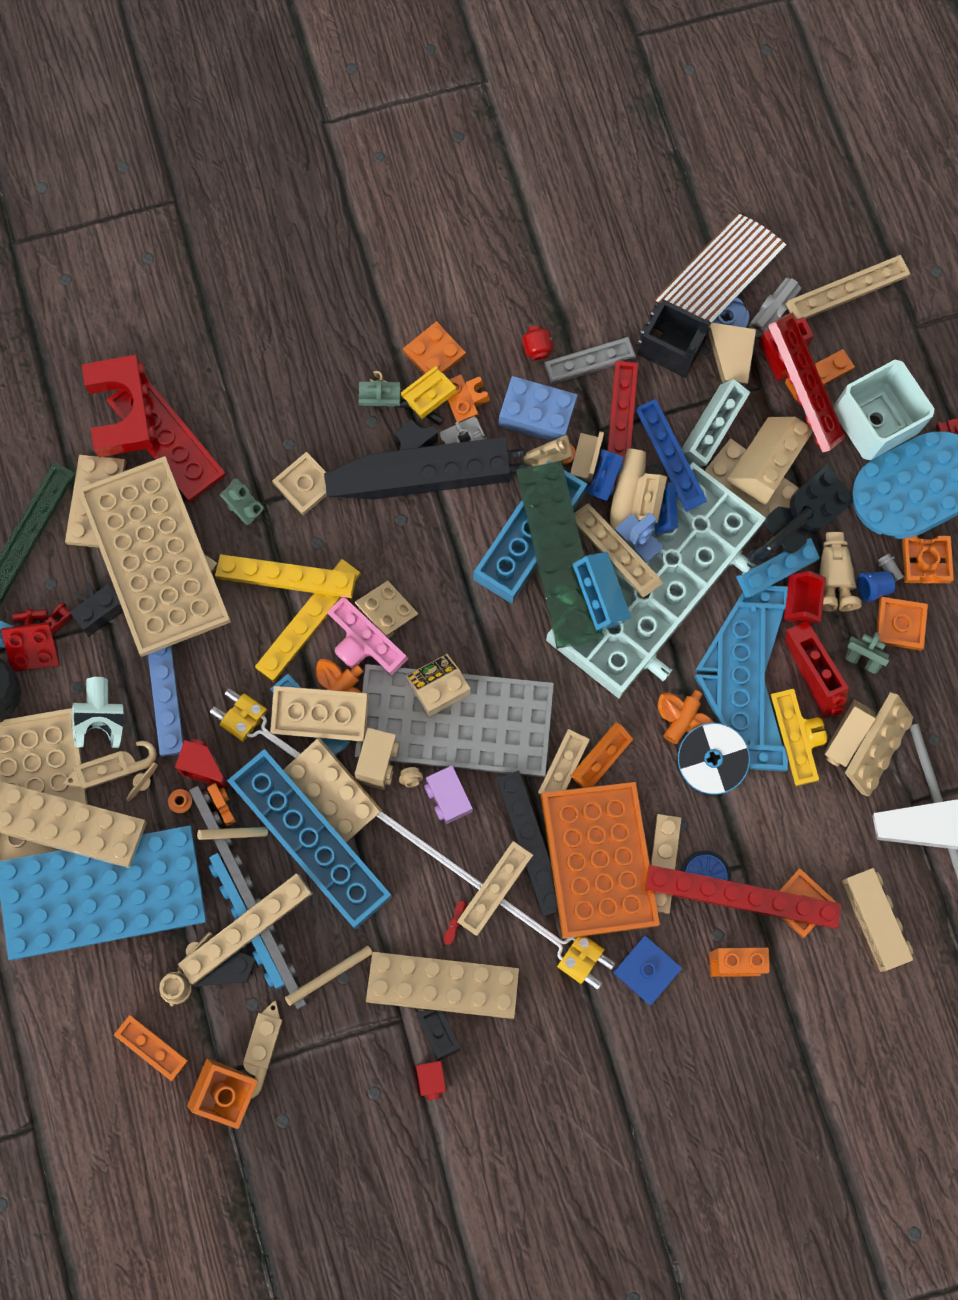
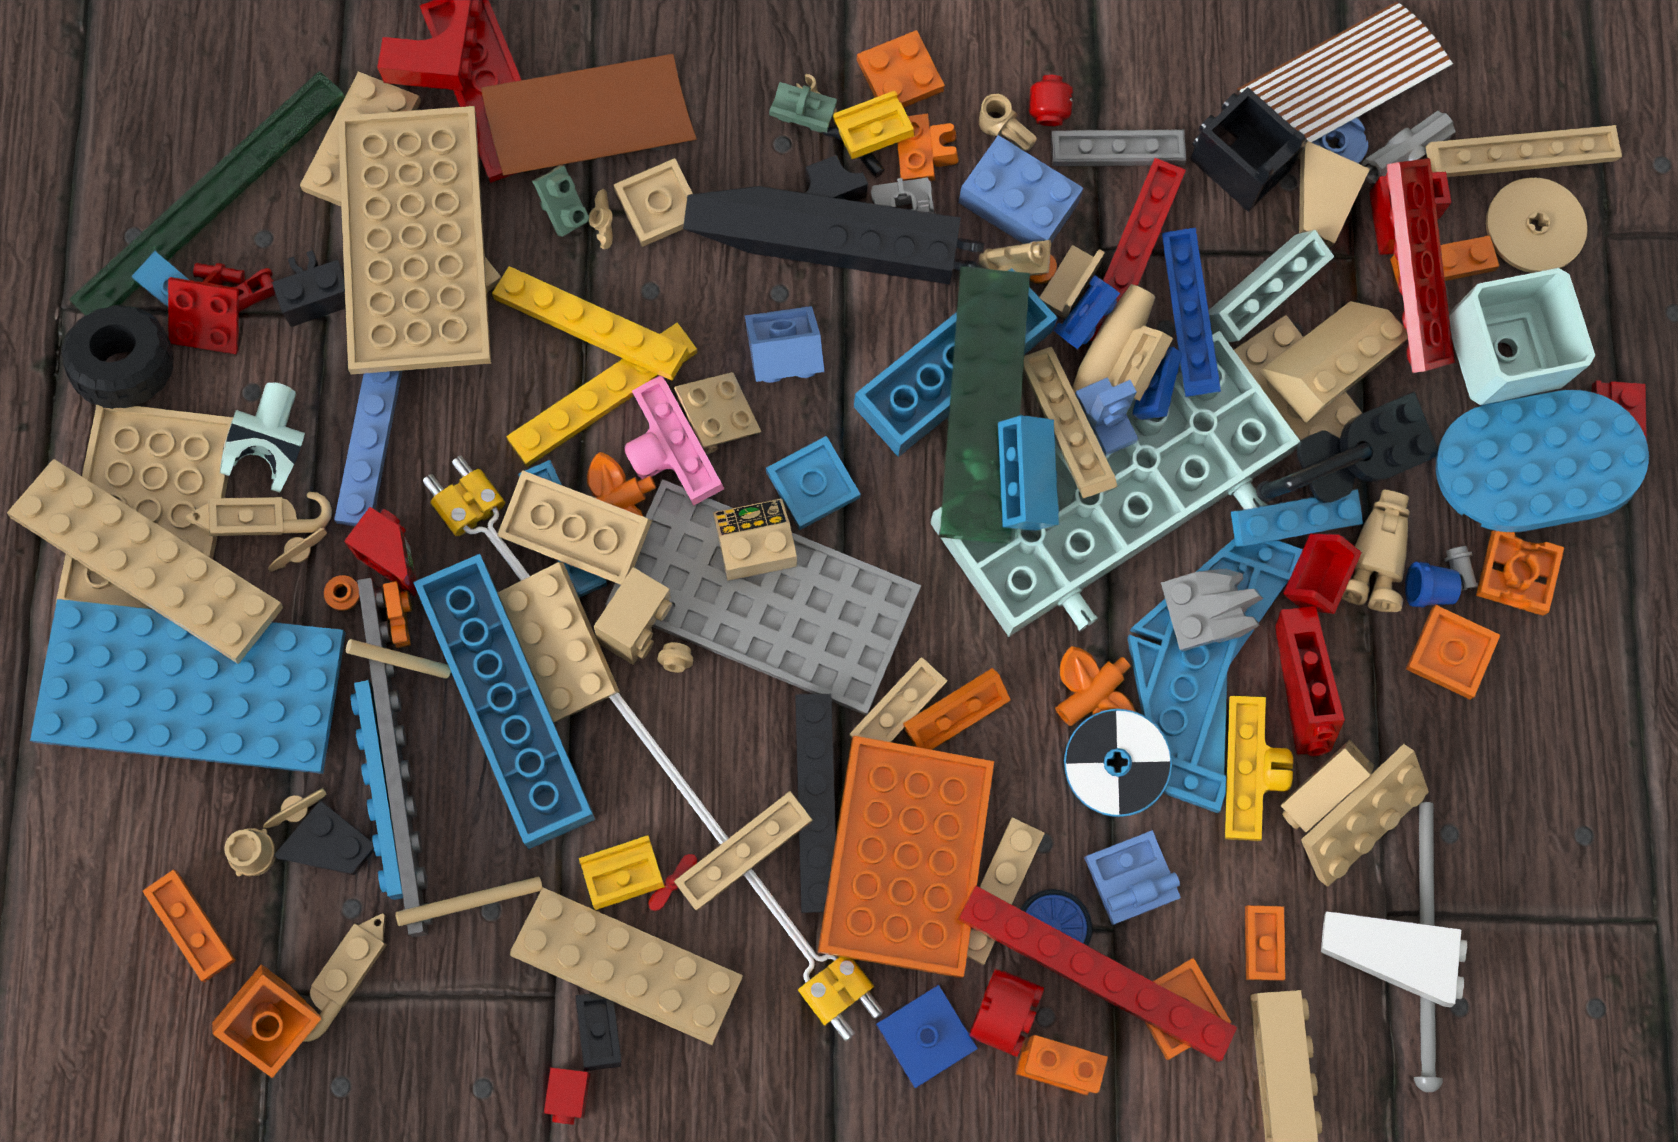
camera: 15 degrees right, 0 degrees up
(239, 439) = (587, 114): none -> dark orange sticker
(245, 929) = (371, 798): tan plate -> none
(271, 505) = (601, 219): none -> tan piece
(416, 552) = (784, 344): none -> medium blue slope
(420, 926) = (621, 872): none -> yellow plate
(448, 794) = (721, 699): lavender brick -> none
(463, 637) = (813, 482): none -> dark azure plate
(515, 367) = (1005, 125): none -> tan axle
(693, 939) = (1006, 1012): none -> red brick
(741, 641) = (1209, 607): none -> light grey plate
(745, 829) = (1132, 877): none -> medium blue plate
(841, 845) = (1265, 943): none -> orange plate
(862, 347) = (1557, 213): none -> tan piece
(876, 657) = (1401, 689): sand green hips -> none

